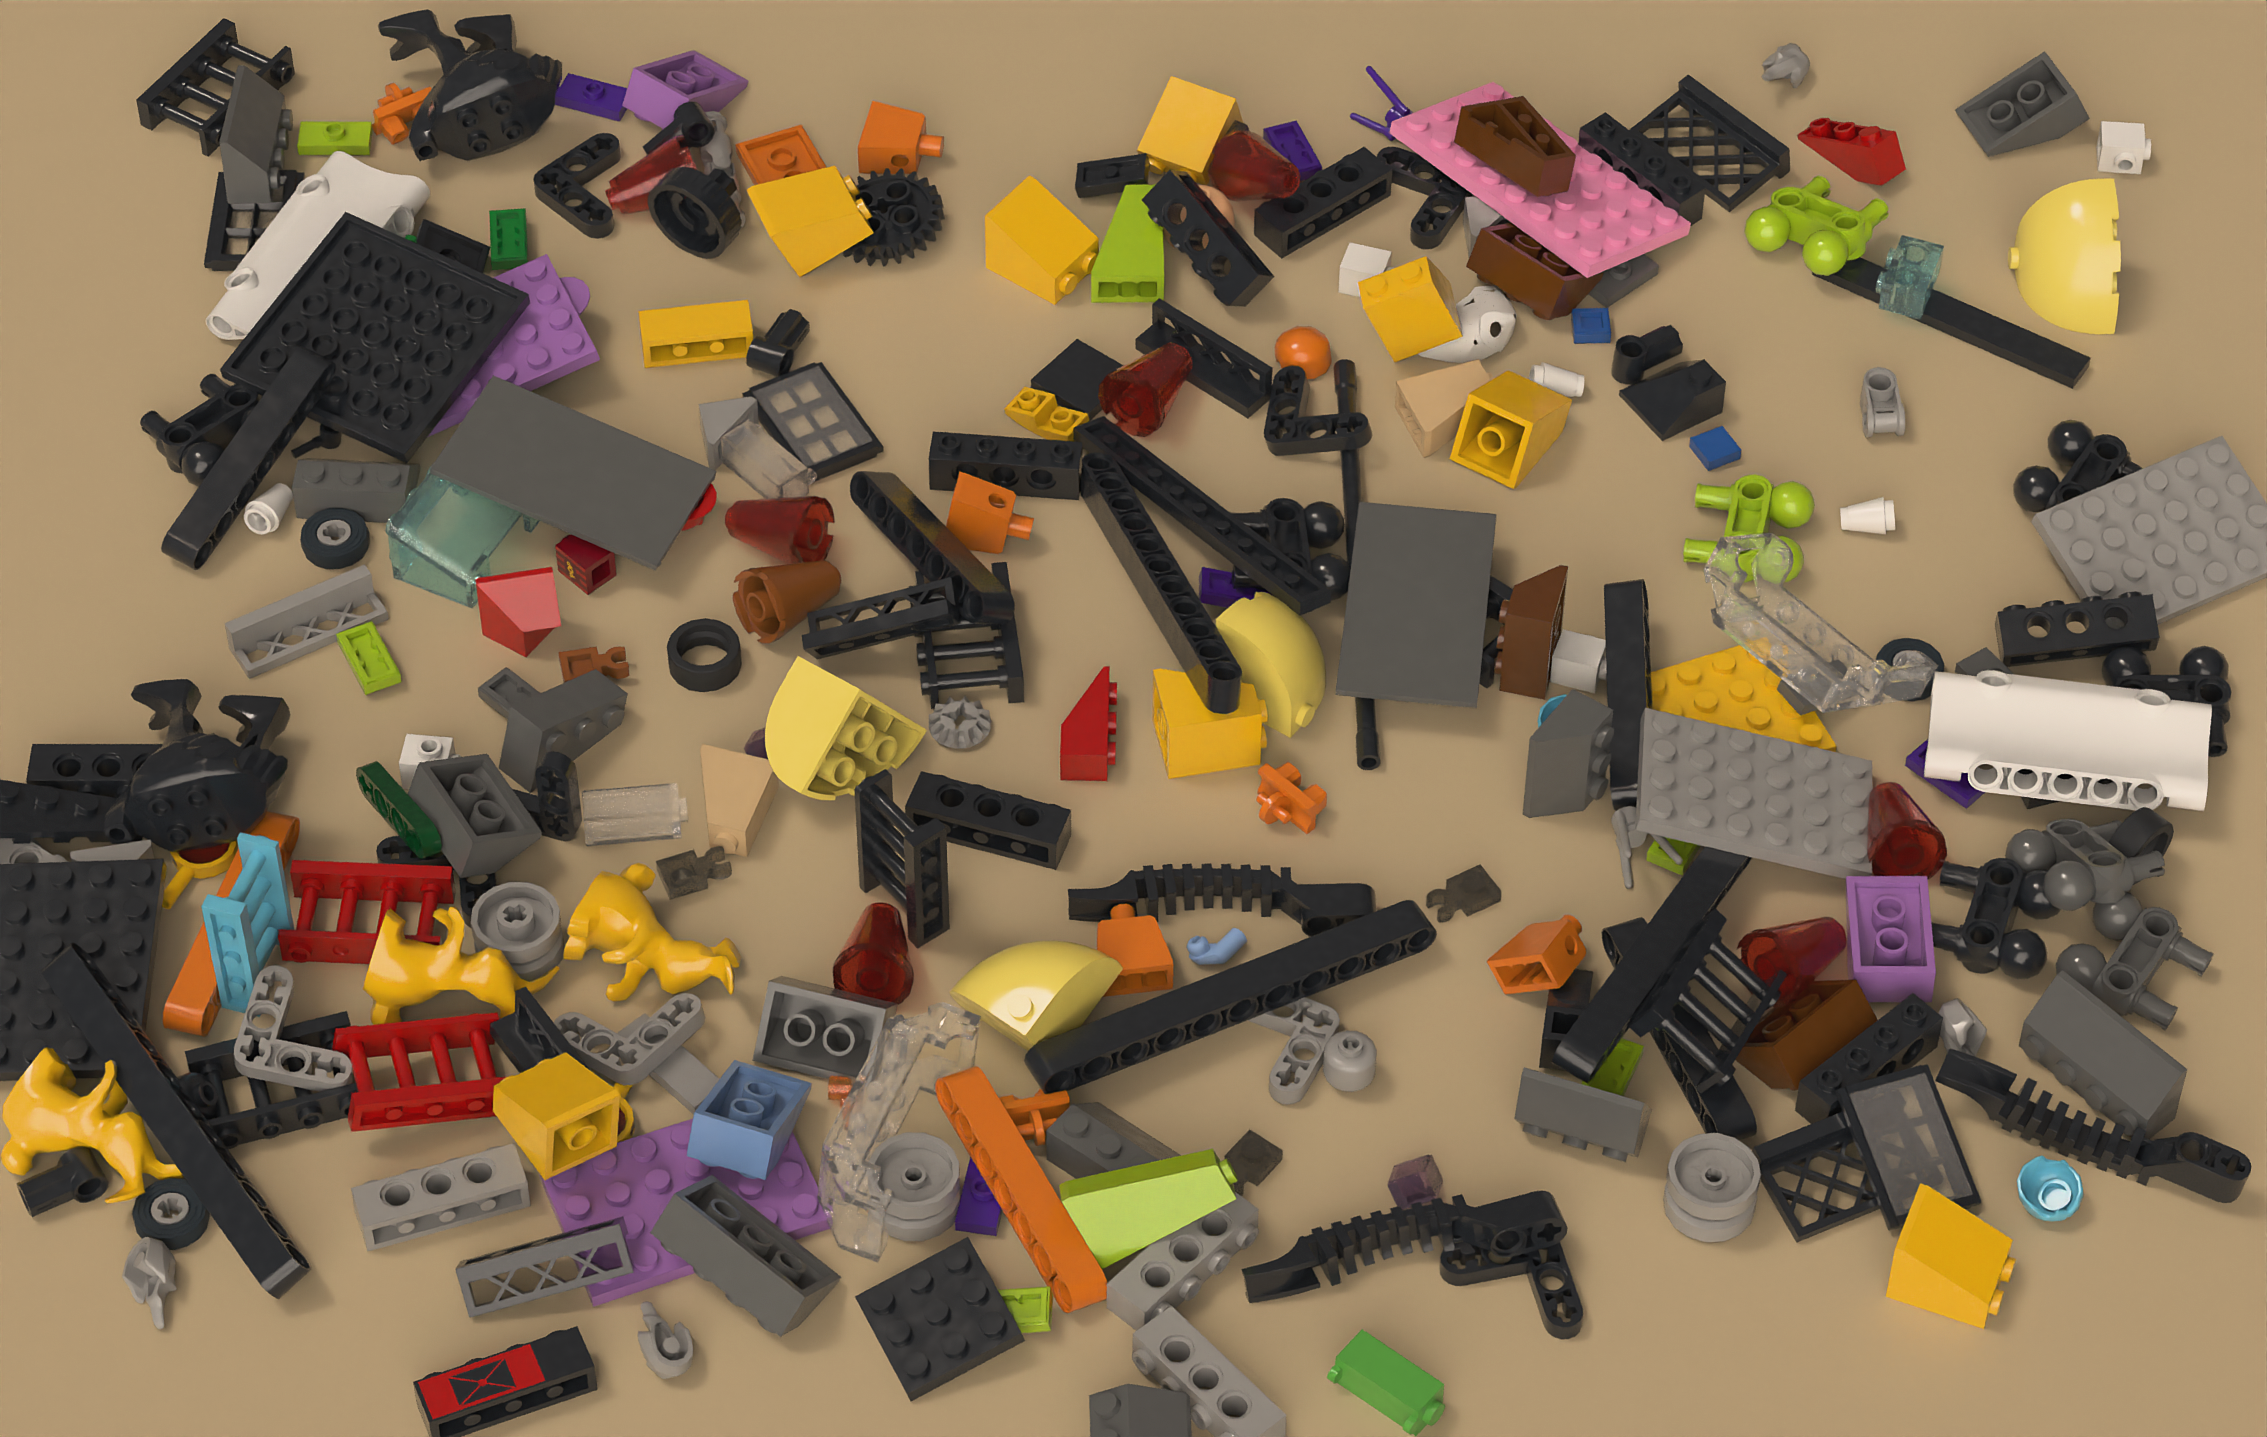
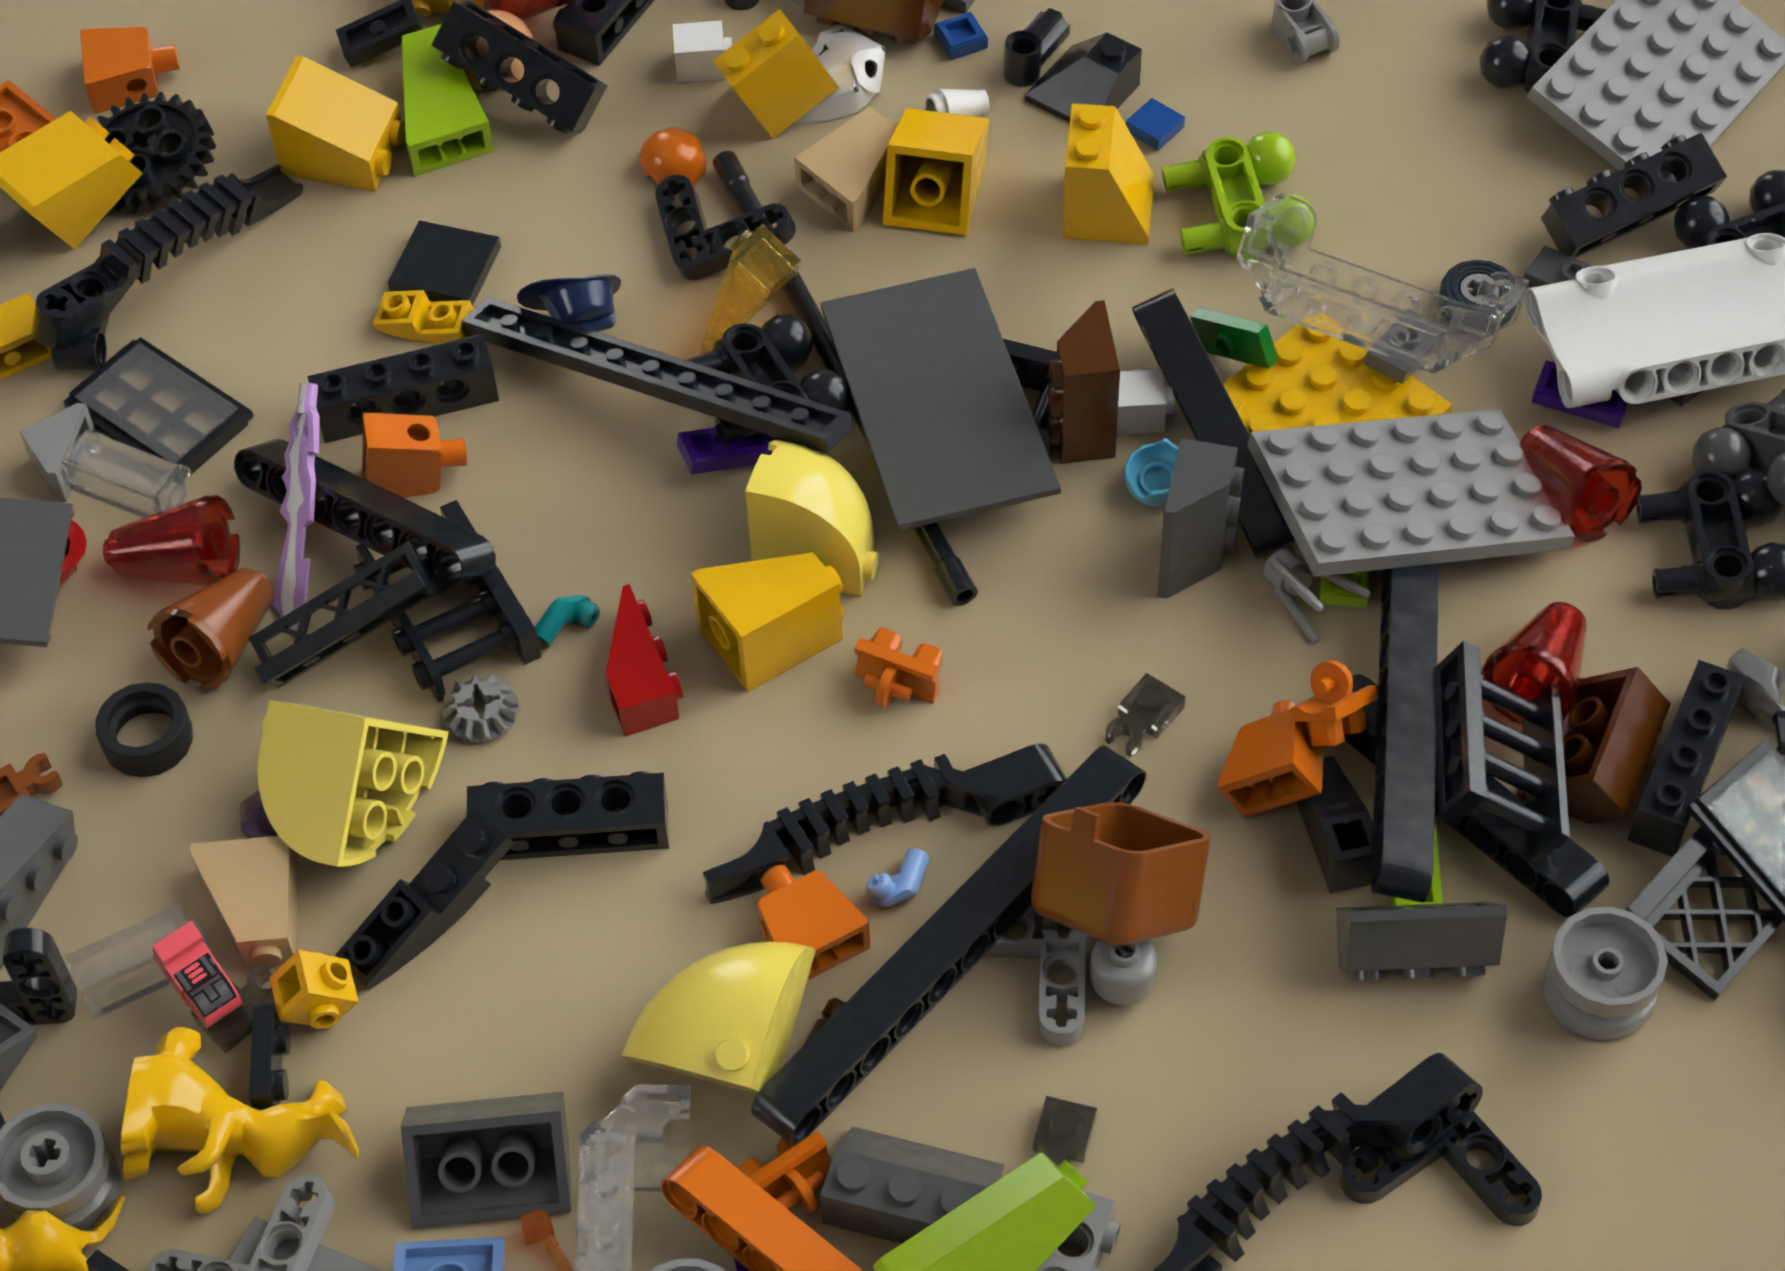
camera: 20 degrees left, 5 degrees up
(668, 833) = (196, 974): none -> coral leg
(699, 906) = (269, 1042): none -> black plate
(749, 875) = (313, 989): none -> yellow brick
(789, 317) = (89, 296): none -> black piece
(834, 851) = (425, 908): none -> black slope
(876, 956) = (512, 1040): clear red cone -> none
(886, 522) = (299, 502): none -> lavender sword
(921, 848) = (518, 924): black fence -> none
(1055, 673) = (564, 612): none -> teal arm
(1145, 389) = (522, 248): clear red cone -> none
(1161, 583) = (654, 470): black beam -> none
(1168, 440) = (575, 300): none -> dark blue piece
(1210, 371) = (572, 205): black fence -> none
(1311, 468) = (753, 276): none -> clear yellow slope
(1372, 987) = (1119, 872): none -> dark orange piece
(1415, 1181) = (1265, 1090): slope -> none
(1602, 921) = (1334, 706): none -> orange hips
(1641, 477) = (1105, 179): none -> yellow slope
(1681, 635) = (1234, 337): none -> green plate
(1869, 516) = (1353, 145): white cone -> none
(1890, 937) = (1636, 603): medium lavender slope -> none

